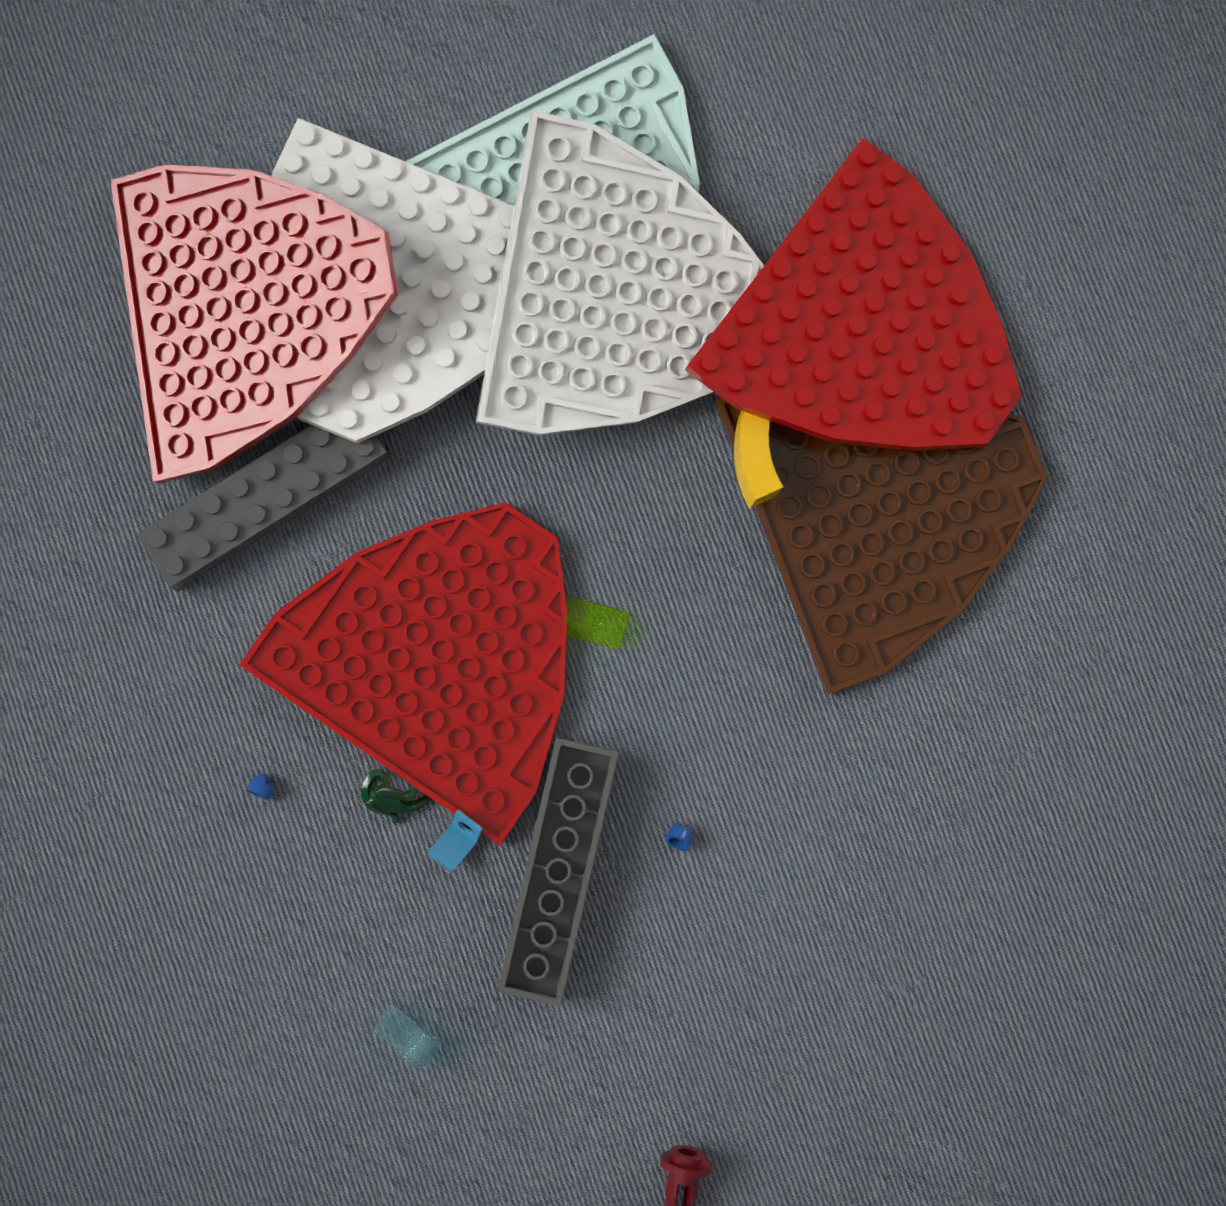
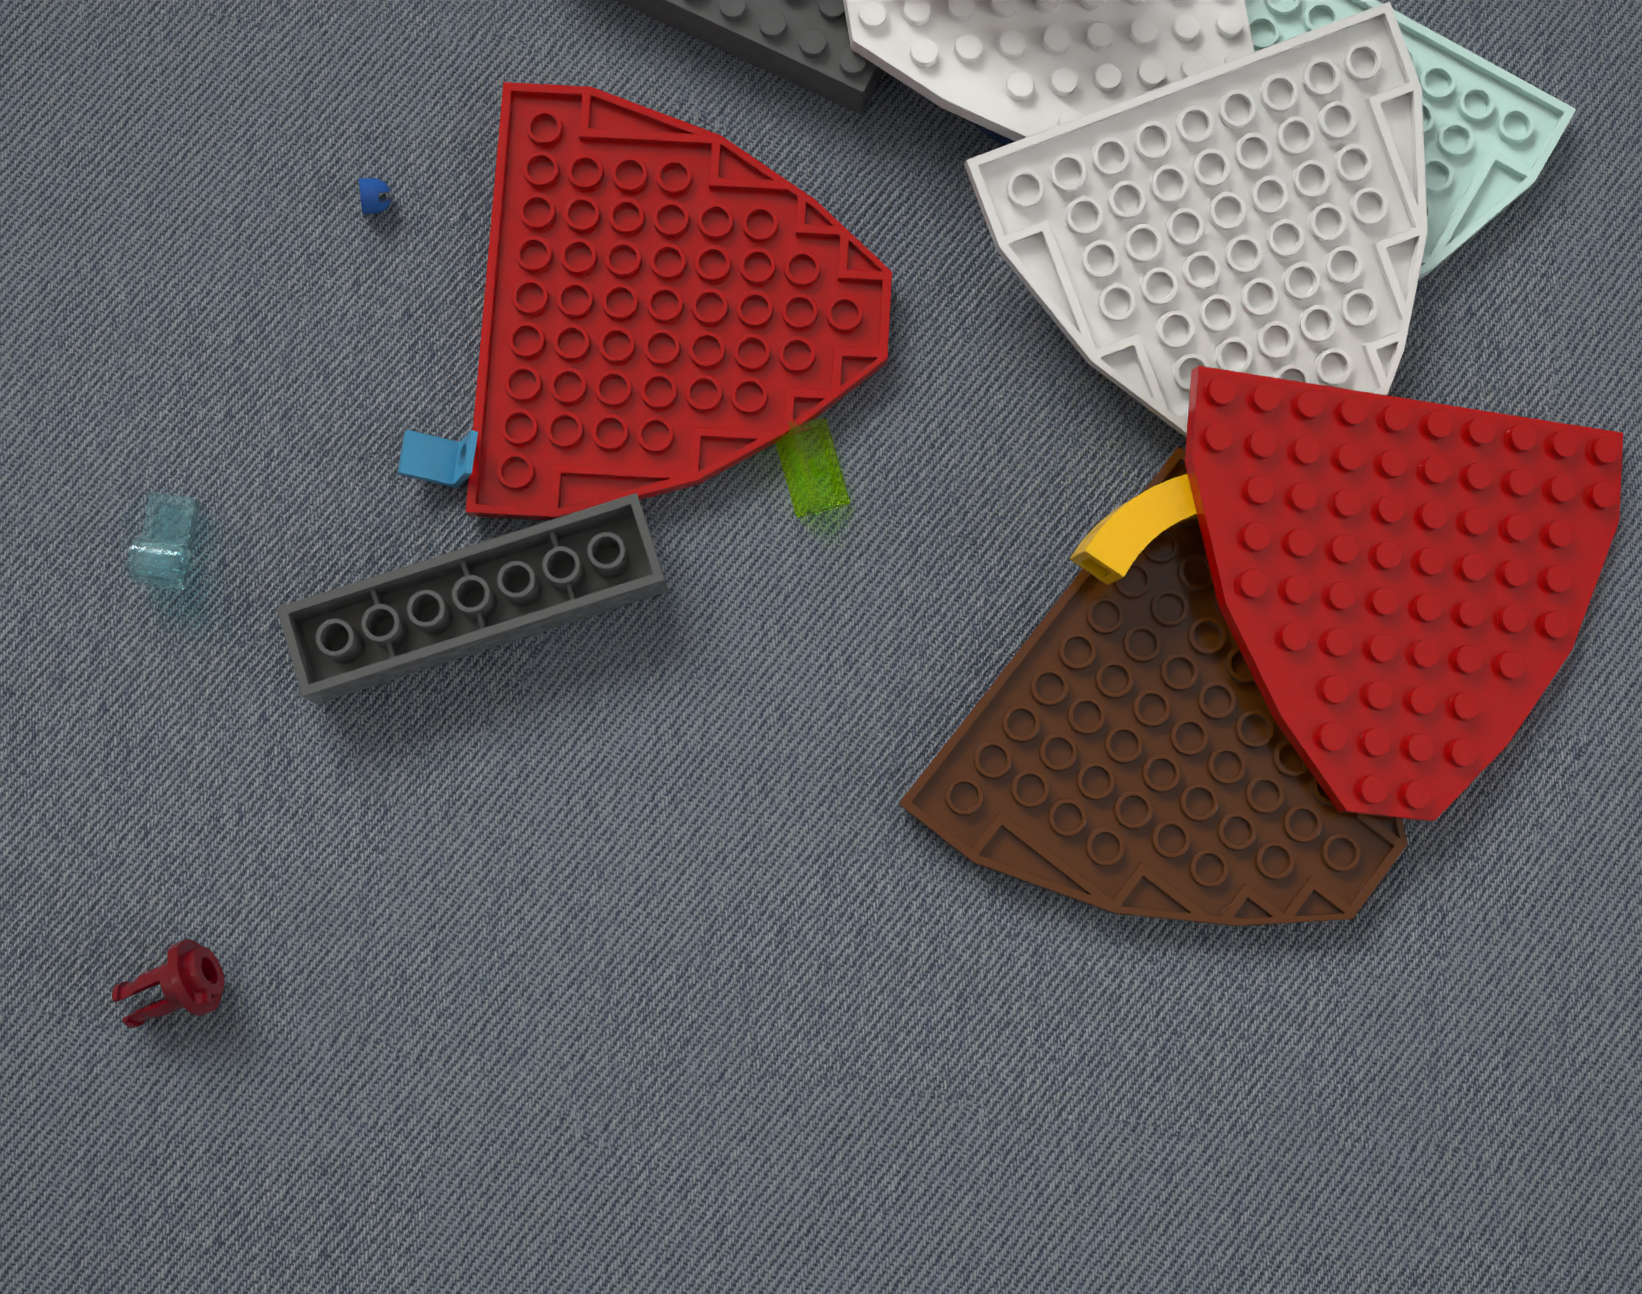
camera: 60 degrees right, 5 degrees down
(387, 799) = (443, 349): dark green piece -> none
(679, 837) = (607, 727): blue hinge -> none

